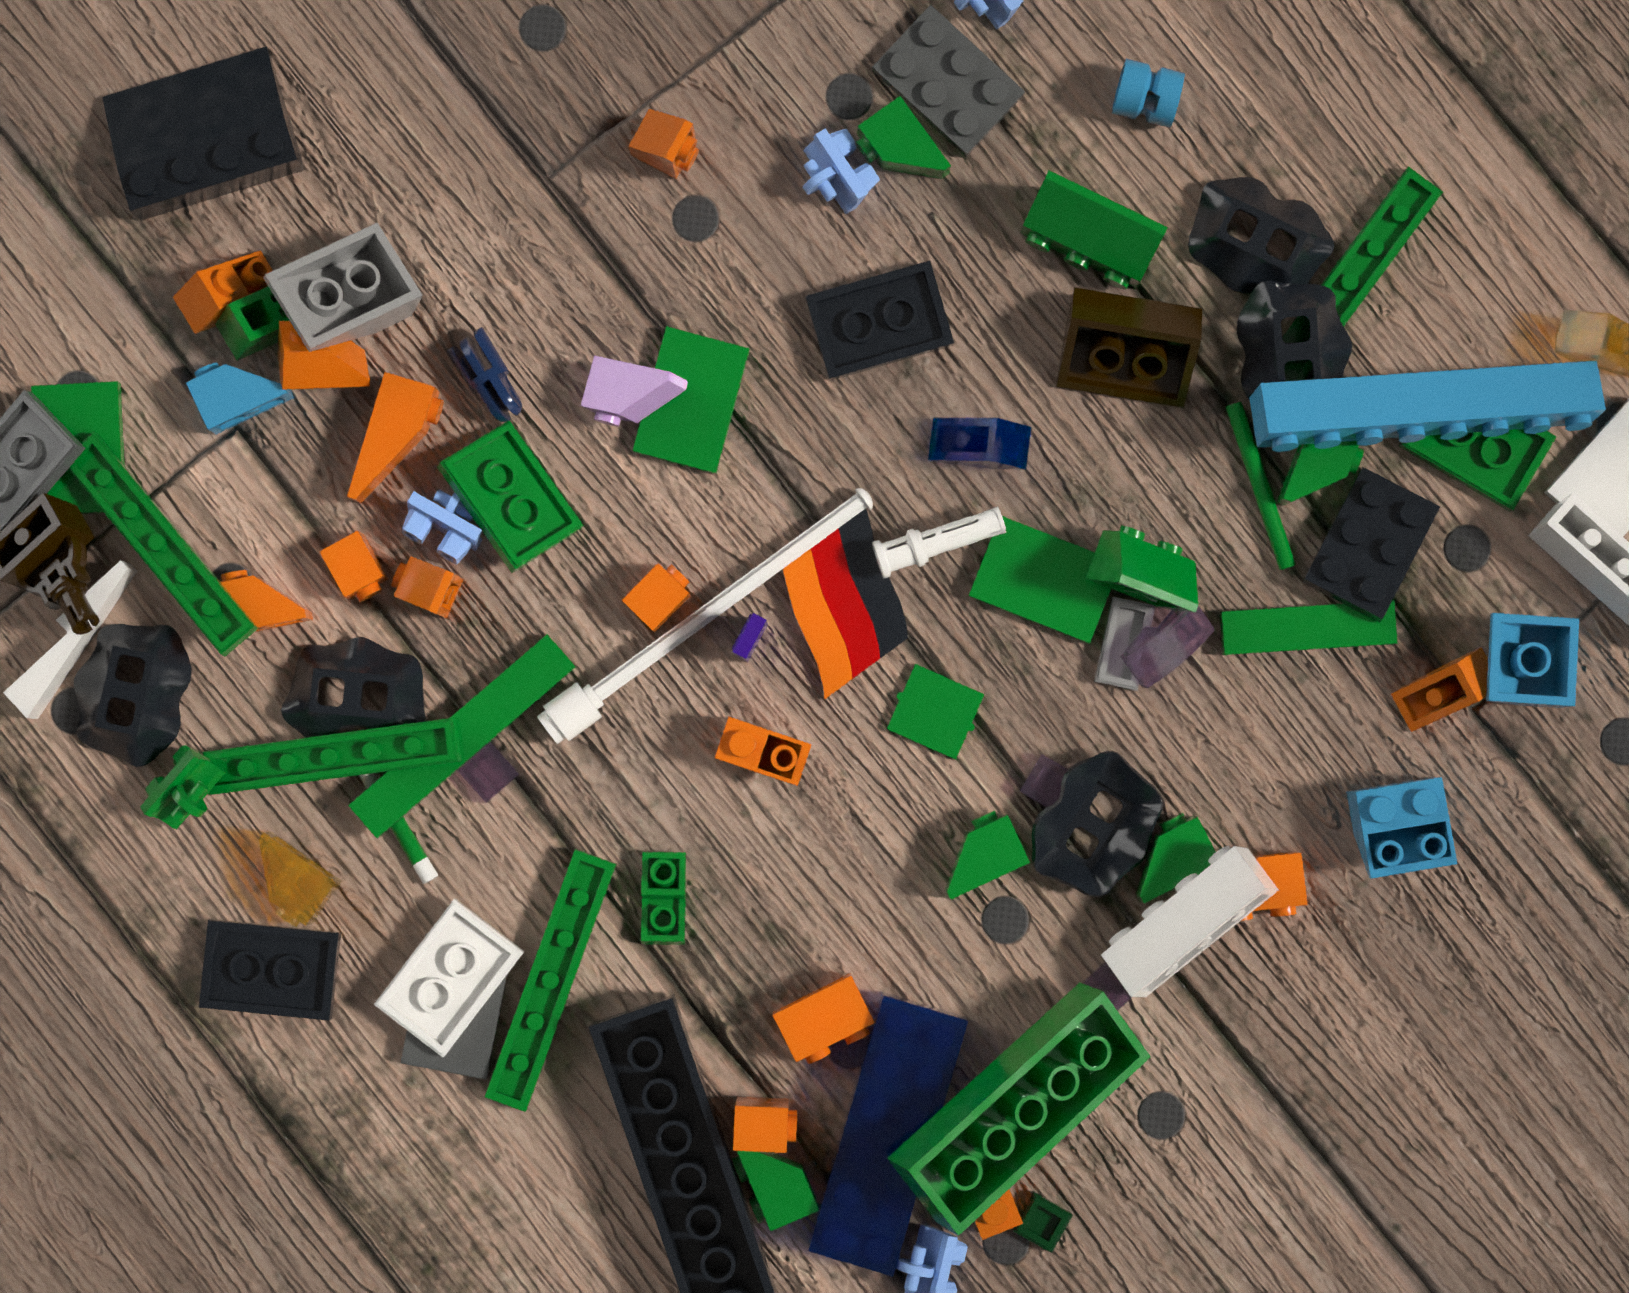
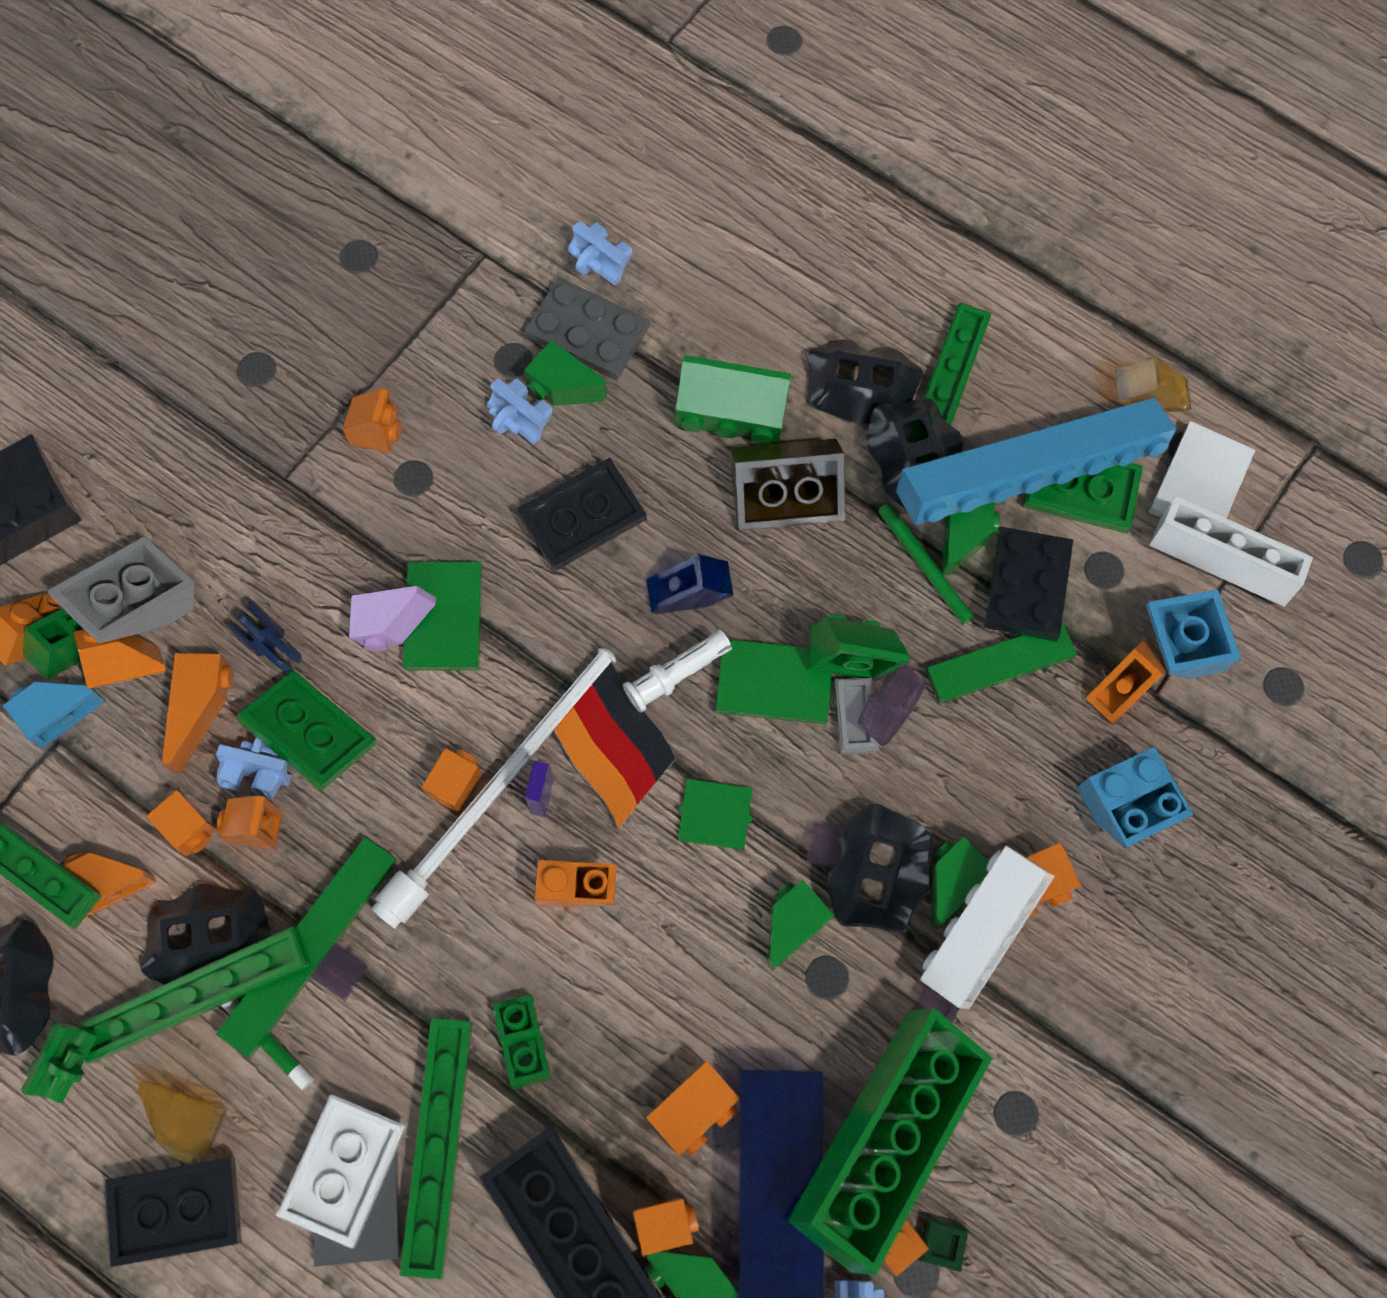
camera: 15 degrees left, 15 degrees down
(1132, 91) = (732, 295): dark azure wheel -> none

